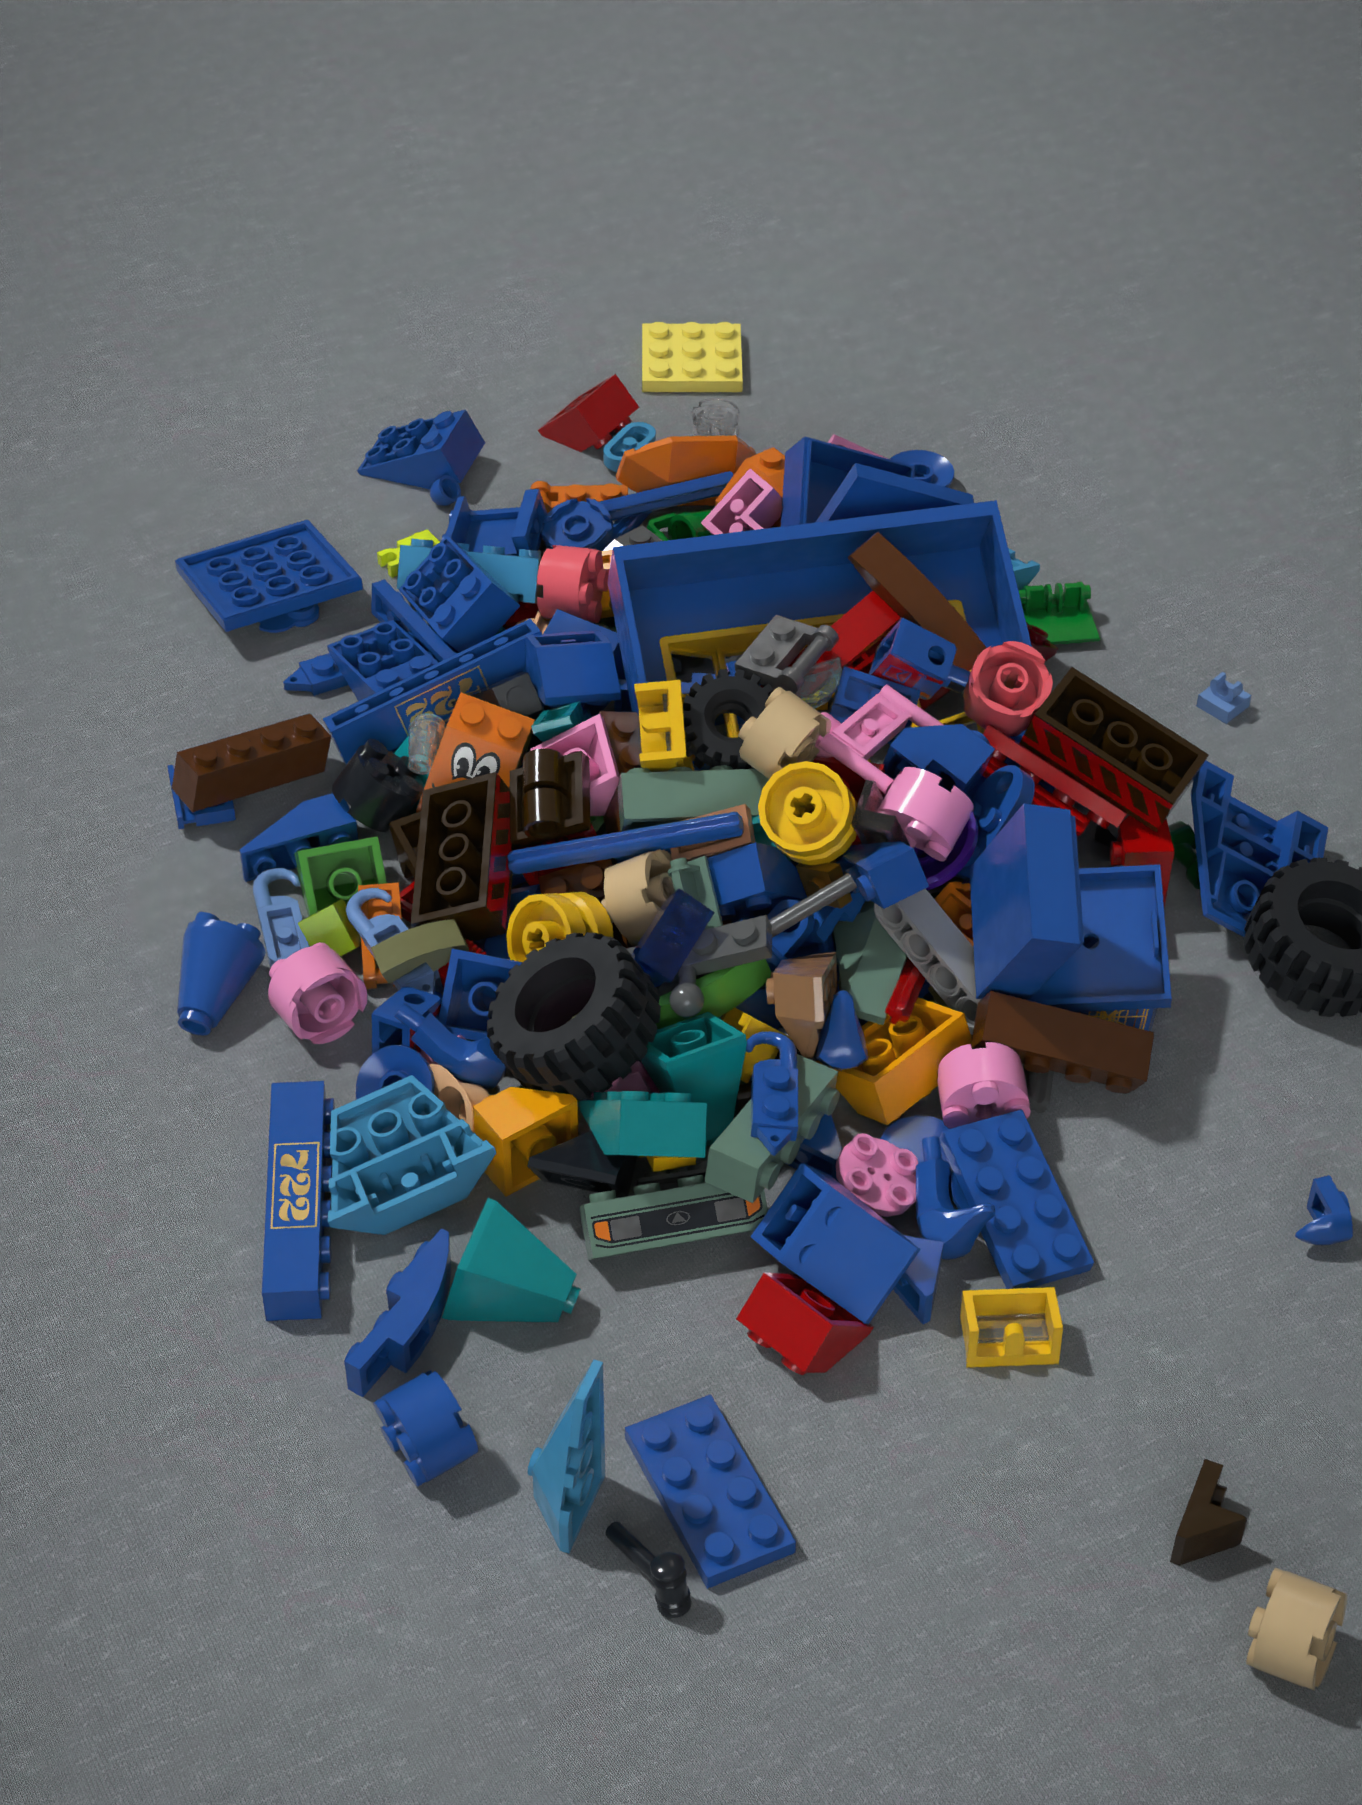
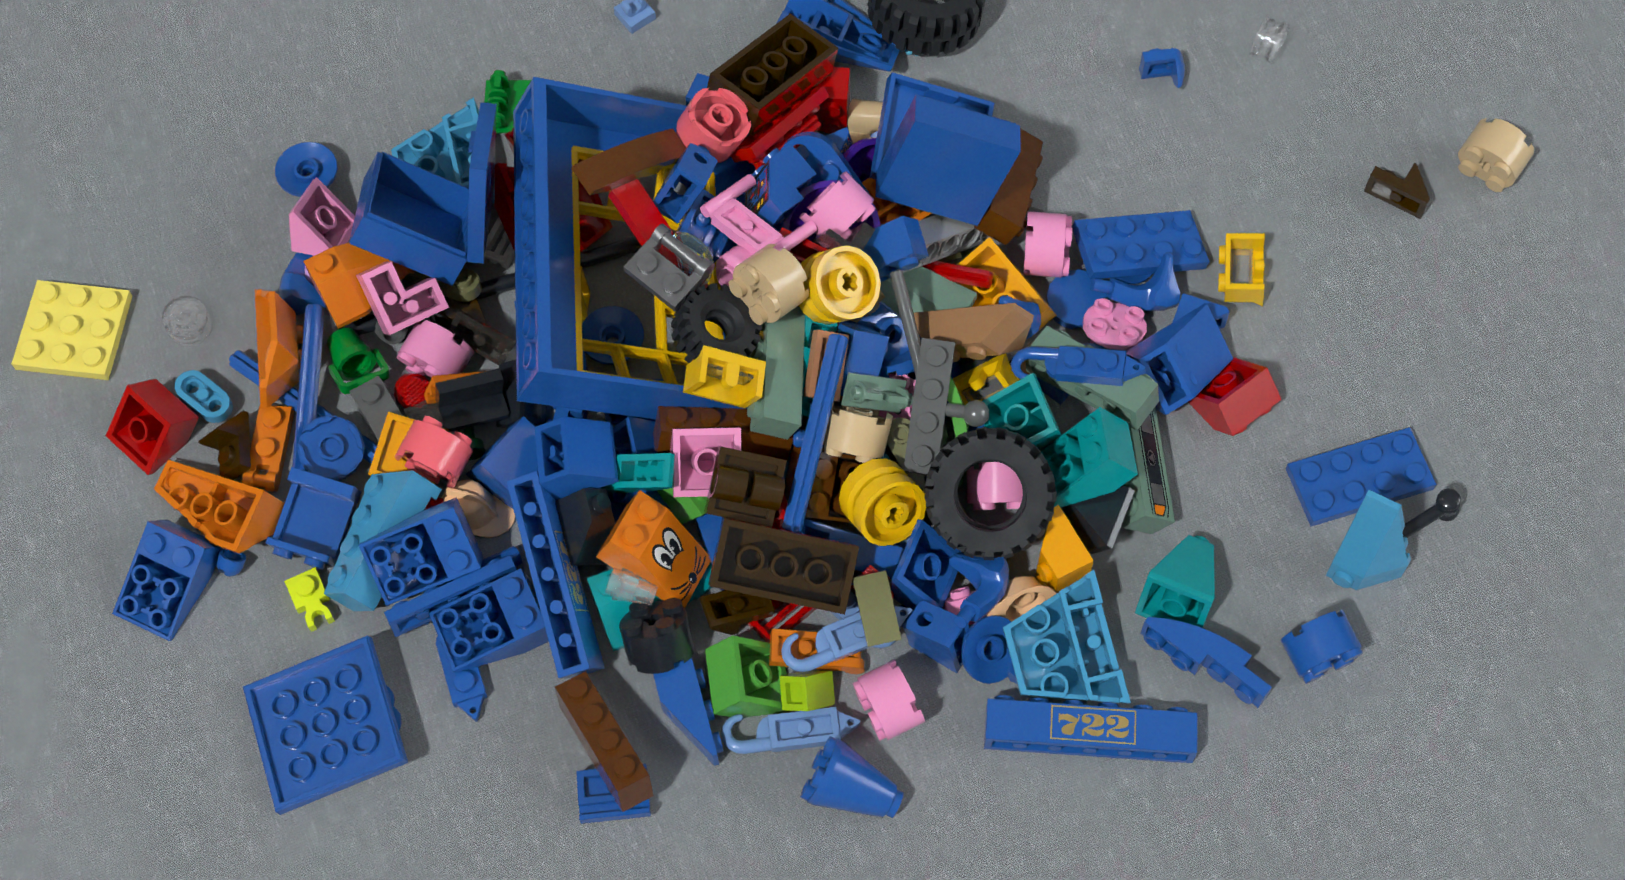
camera: 80 degrees left, 20 degrees up
(500, 476) = (220, 508): none -> orange wedge
(582, 463) = (233, 444): none -> dark brown slope
(671, 936) = (929, 412): clear blue hinge -> none

